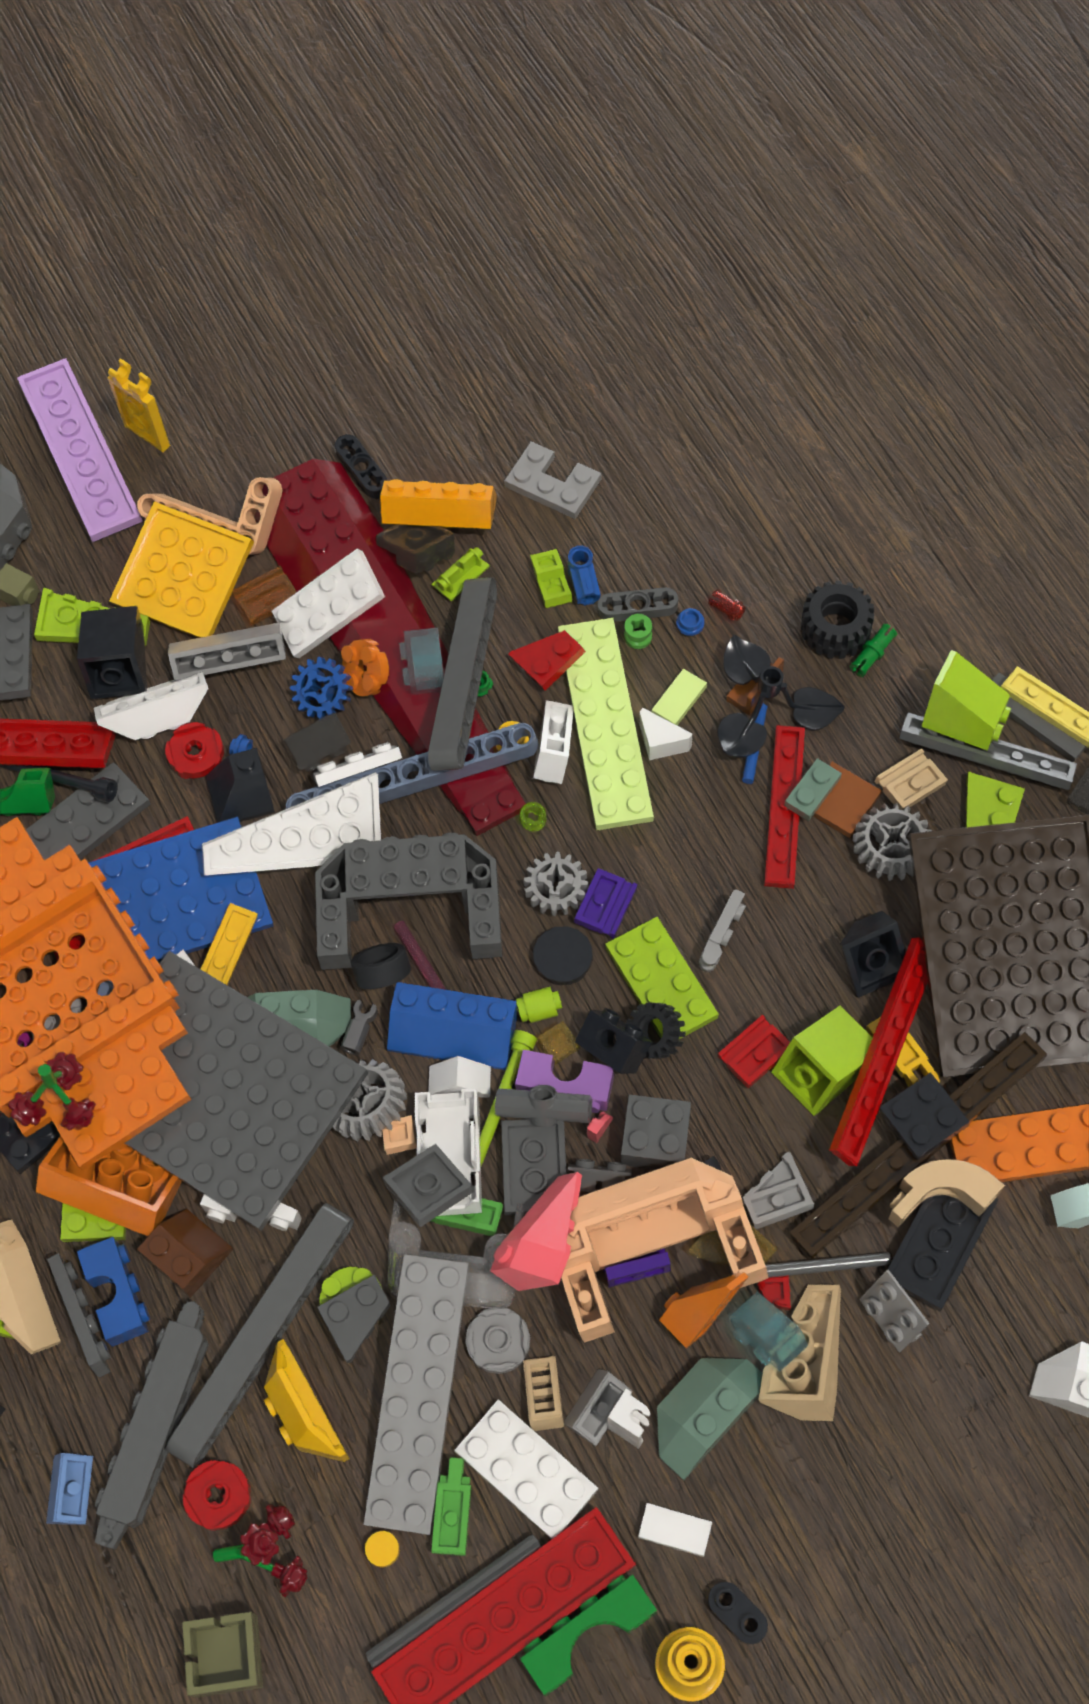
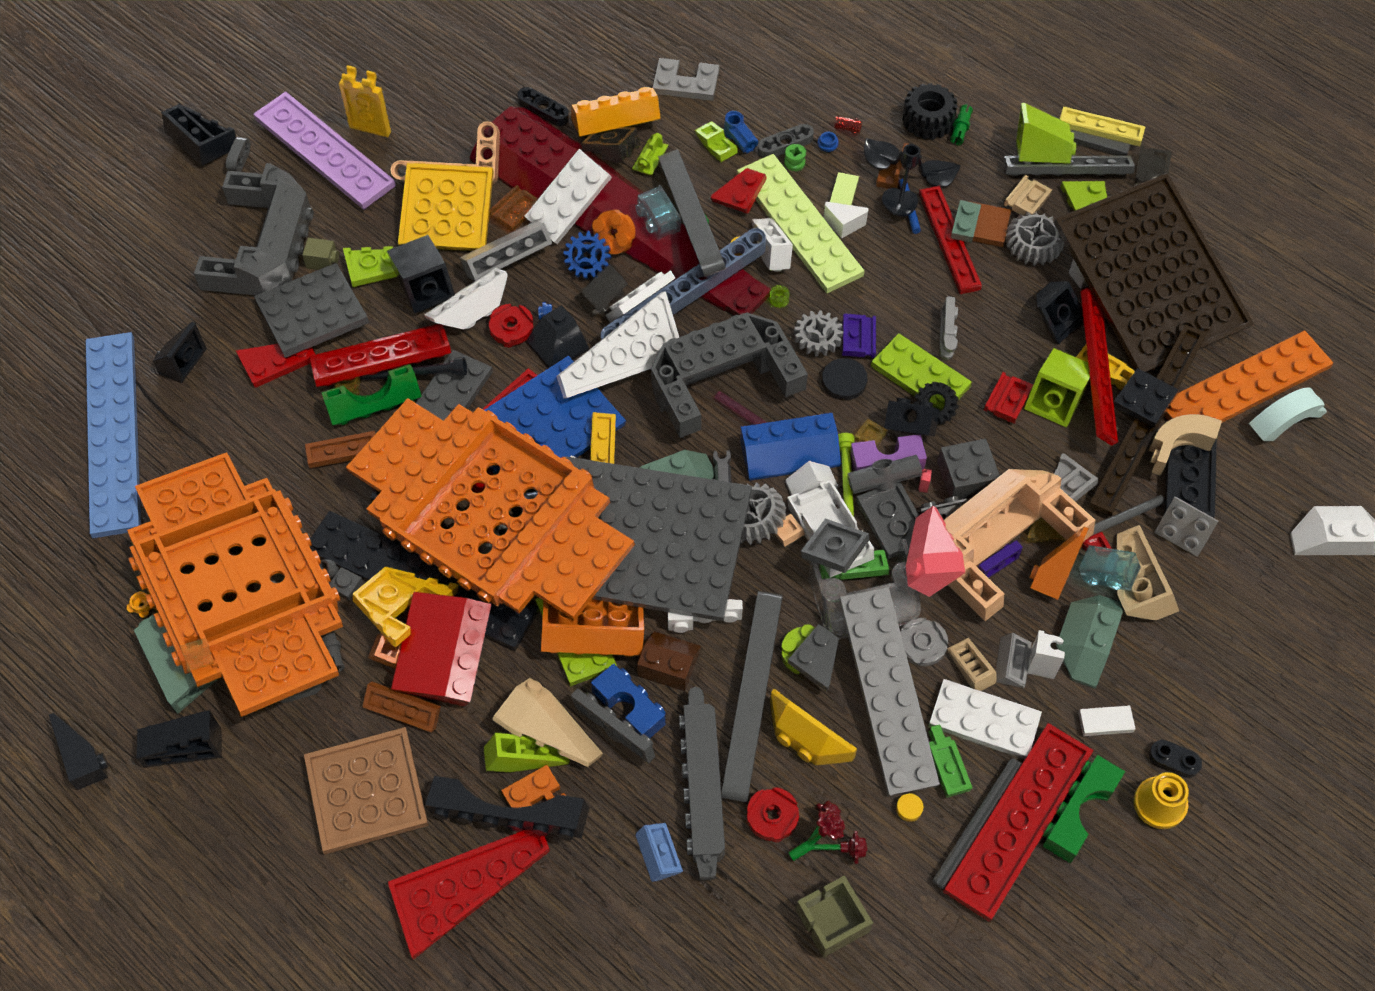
camera: 25 degrees left, 5 degrees down
(57, 1072) = (536, 552): dark red plant -> none
(381, 966) = (722, 421): black tyre -> none
(539, 1005) = (847, 413): lime brick -> none

